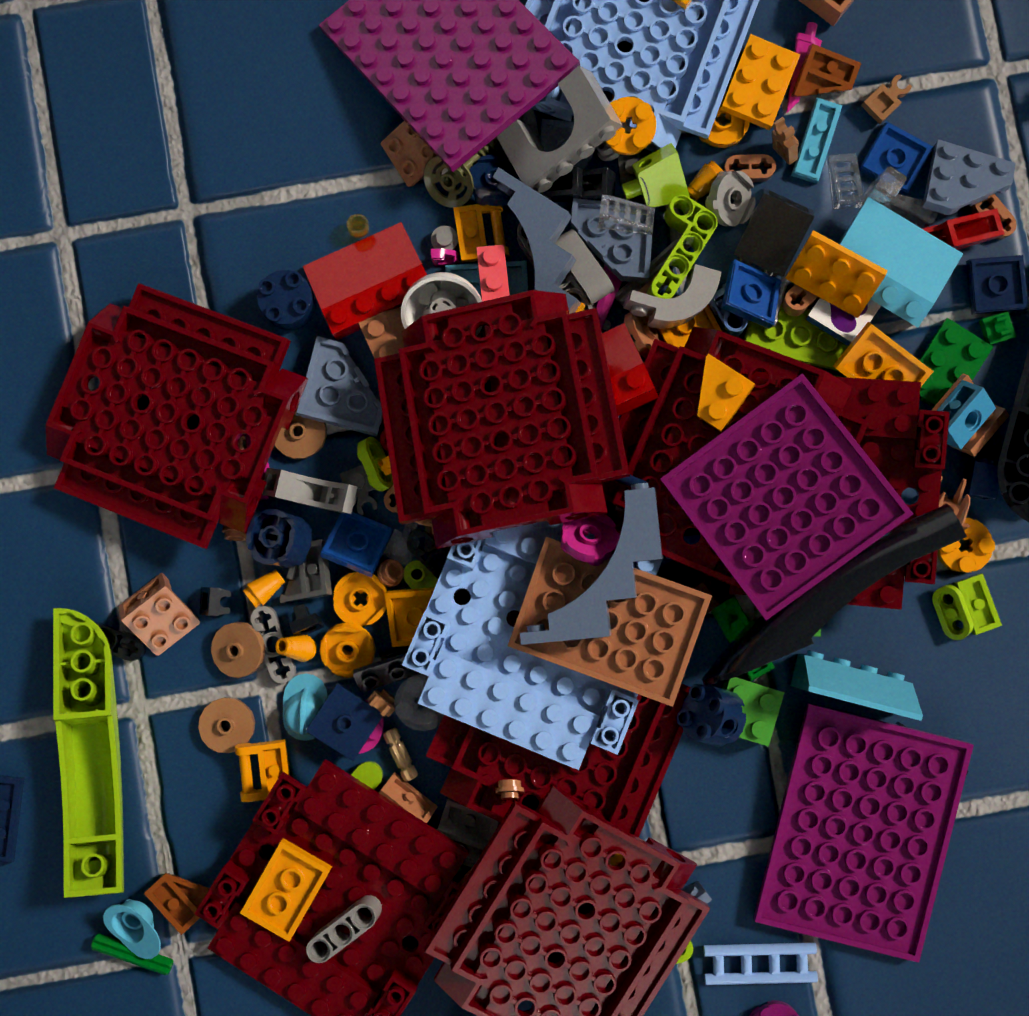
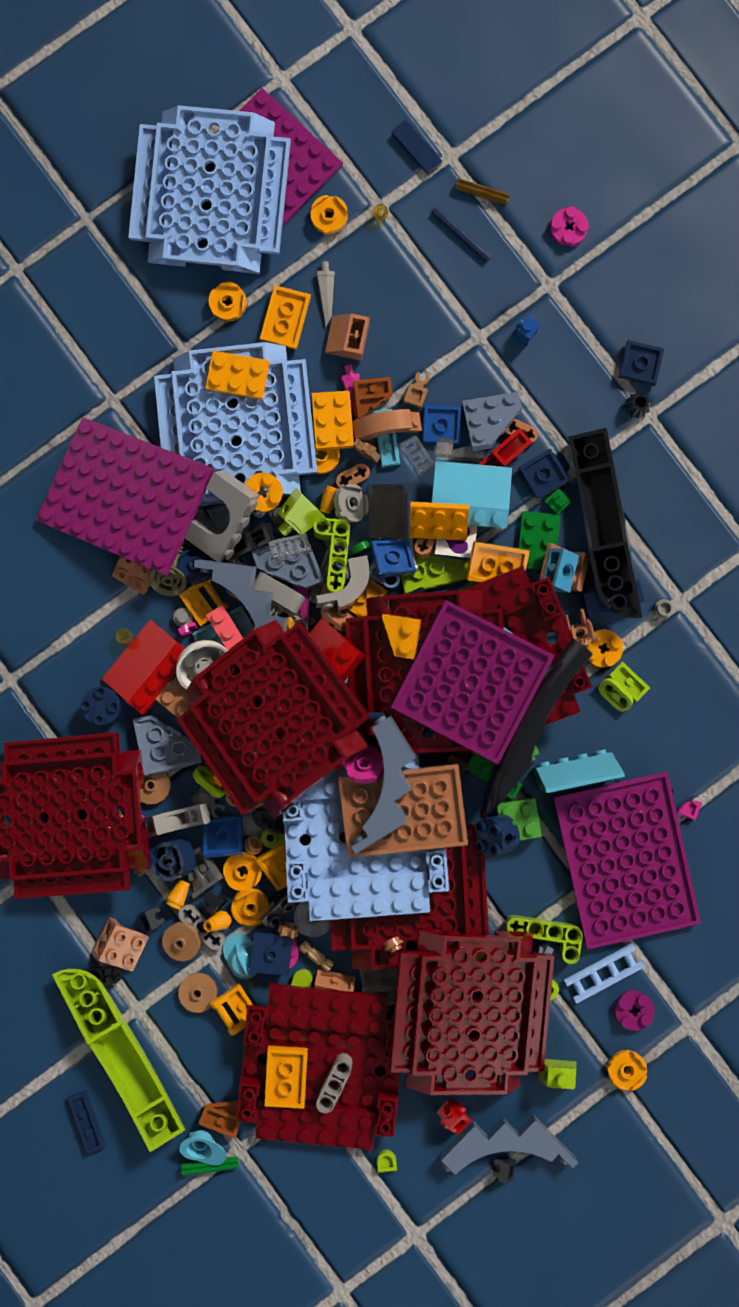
camera: 25 degrees left, 0 degrees up
(708, 870) = (542, 933): none -> lime beam
(715, 261) = (360, 547): none -> green tile
(828, 117) = (385, 423): none -> nougat arch
(975, 808) = (689, 809): none -> dark pink tile

